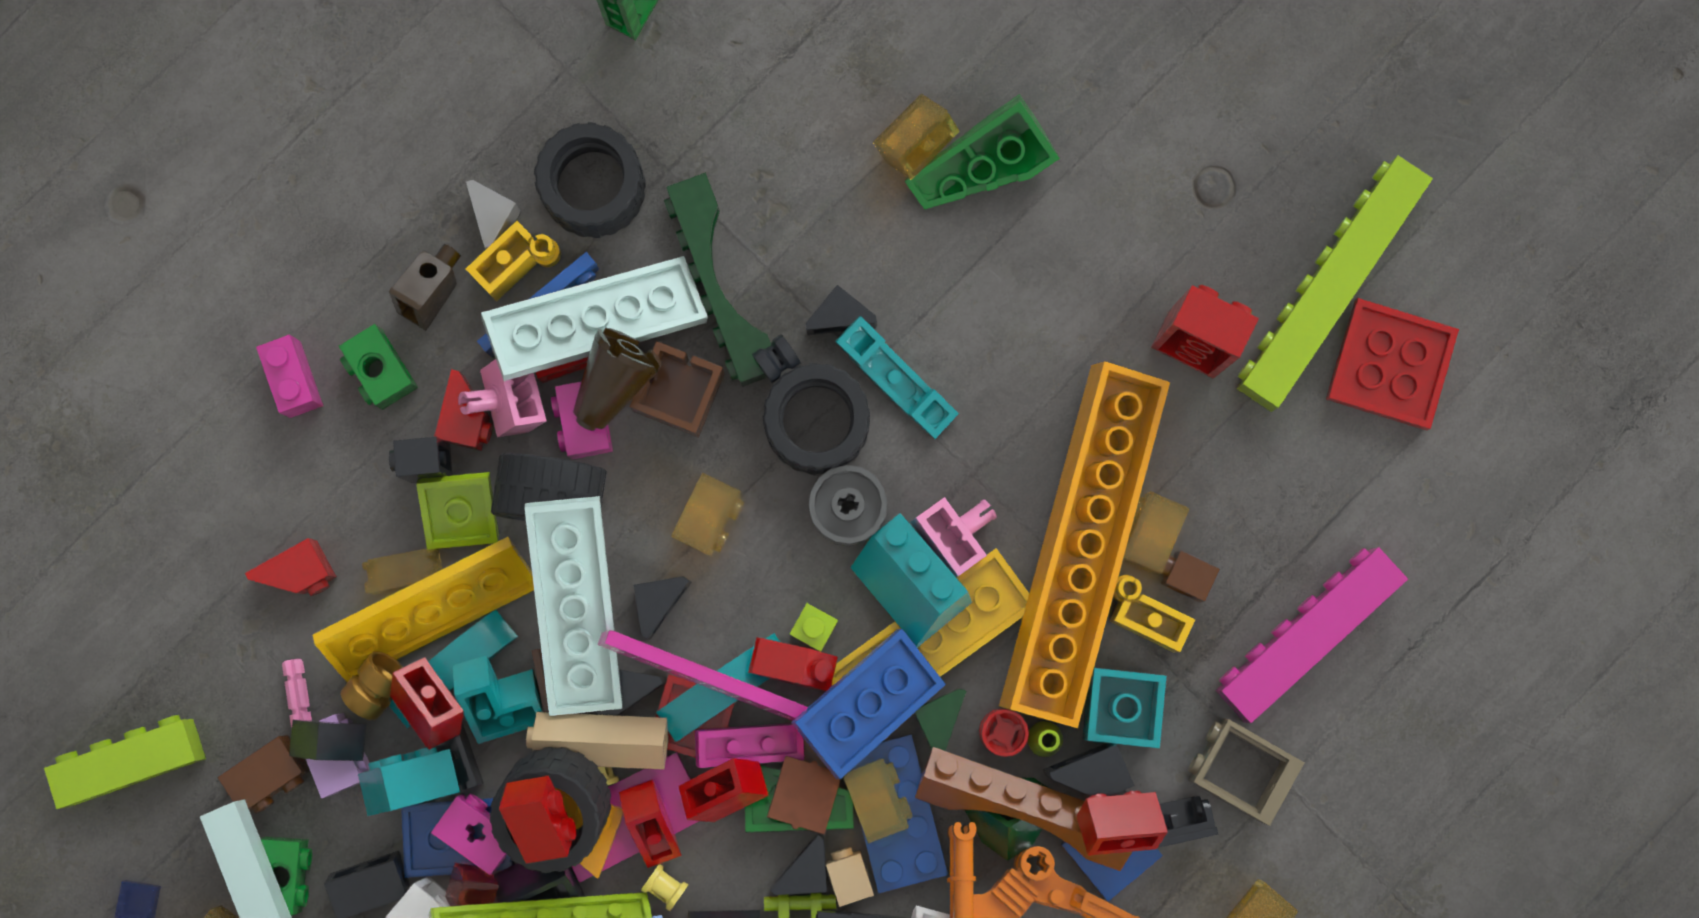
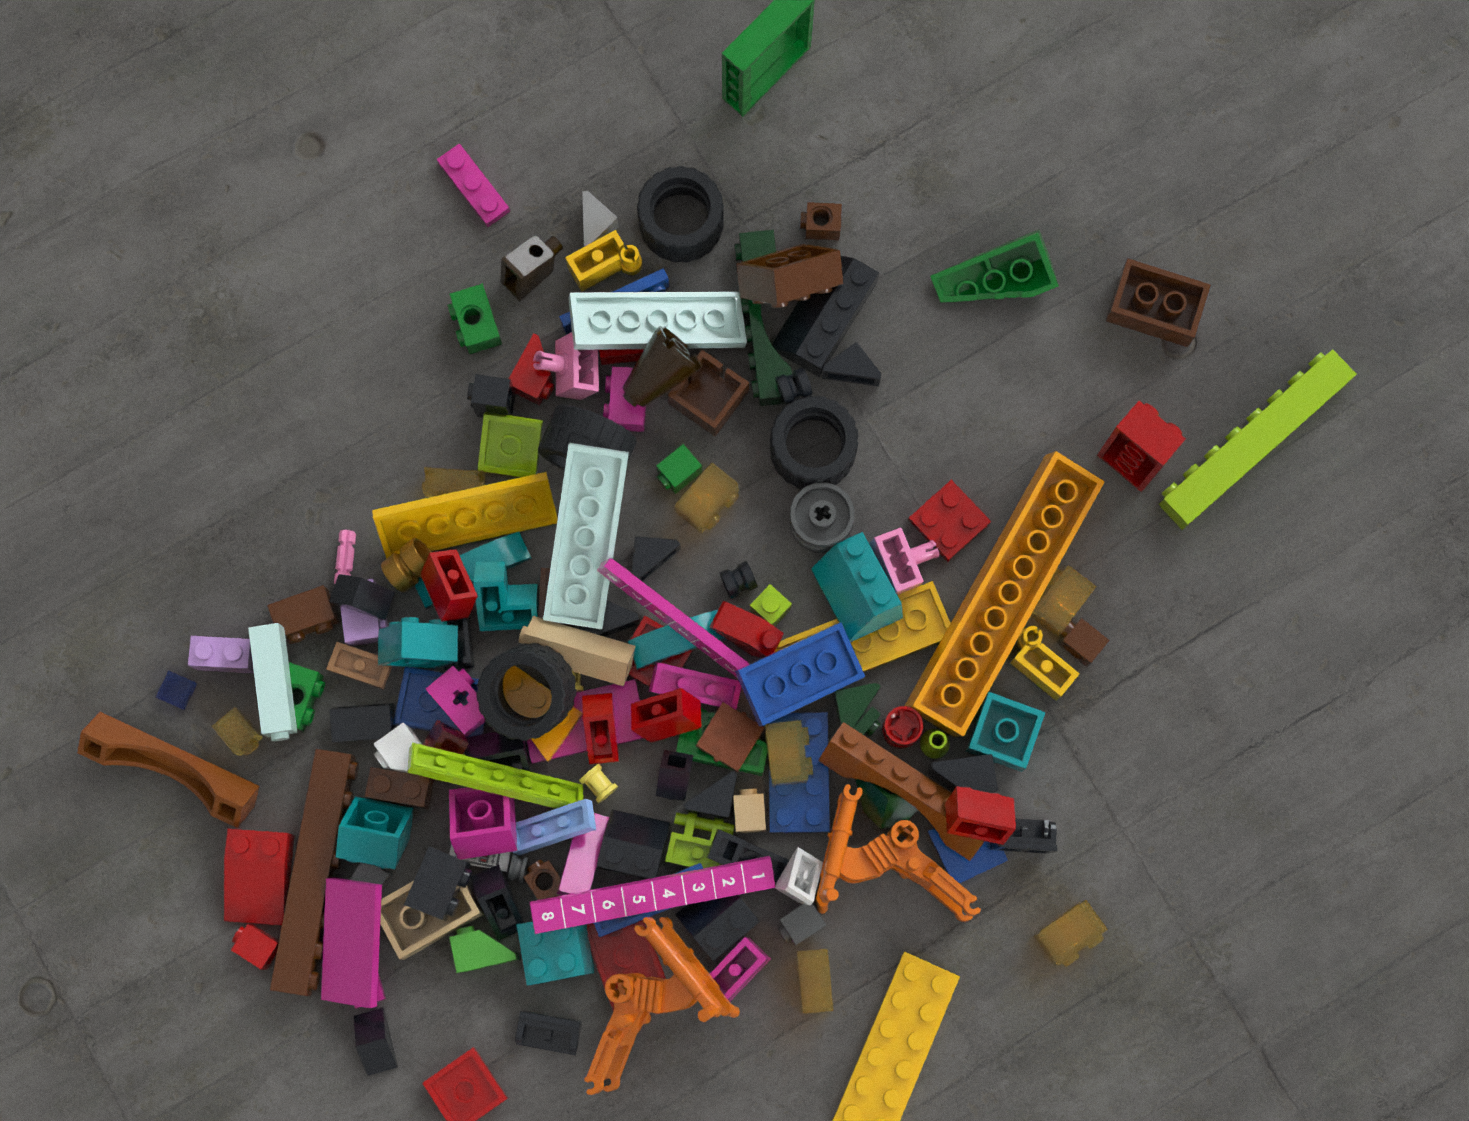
camera: 15 degrees right, 5 degrees down
(124, 763) = (195, 577): lime brick -> none
(174, 849) = (220, 654): none -> lavender brick
(289, 376) = (404, 309): dark pink brick -> none
(297, 569) = (369, 460): red slope -> none
(334, 203) = (473, 185): none -> dark pink plate
(344, 819) = (358, 665): none -> medium nougat plate
(537, 819) = (516, 690): red brick -> none
(664, 489) = (678, 469): none -> green brick
(738, 225) = (789, 275): none -> reddish brown brick
(750, 857) = (674, 775): none -> black brick
(768, 133) = (830, 212): none -> reddish brown brick
(768, 603) = (738, 579): none -> black wheel
(791, 256) = (823, 319): none -> black slope
(896, 378) = (884, 427): teal slope -> none
(916, 136) = (948, 242): clear yellow brick -> none
(962, 737) = (869, 722): none -> dark green plate
(998, 469) = (949, 520): none -> red plate
(1180, 149) = (1158, 302): none -> reddish brown brick
(1275, 790) = (1116, 827): dark tan window -> none
(1311, 634) = (1171, 713): dark pink brick -> none
(1392, 364) = (1289, 515): red plate -> none

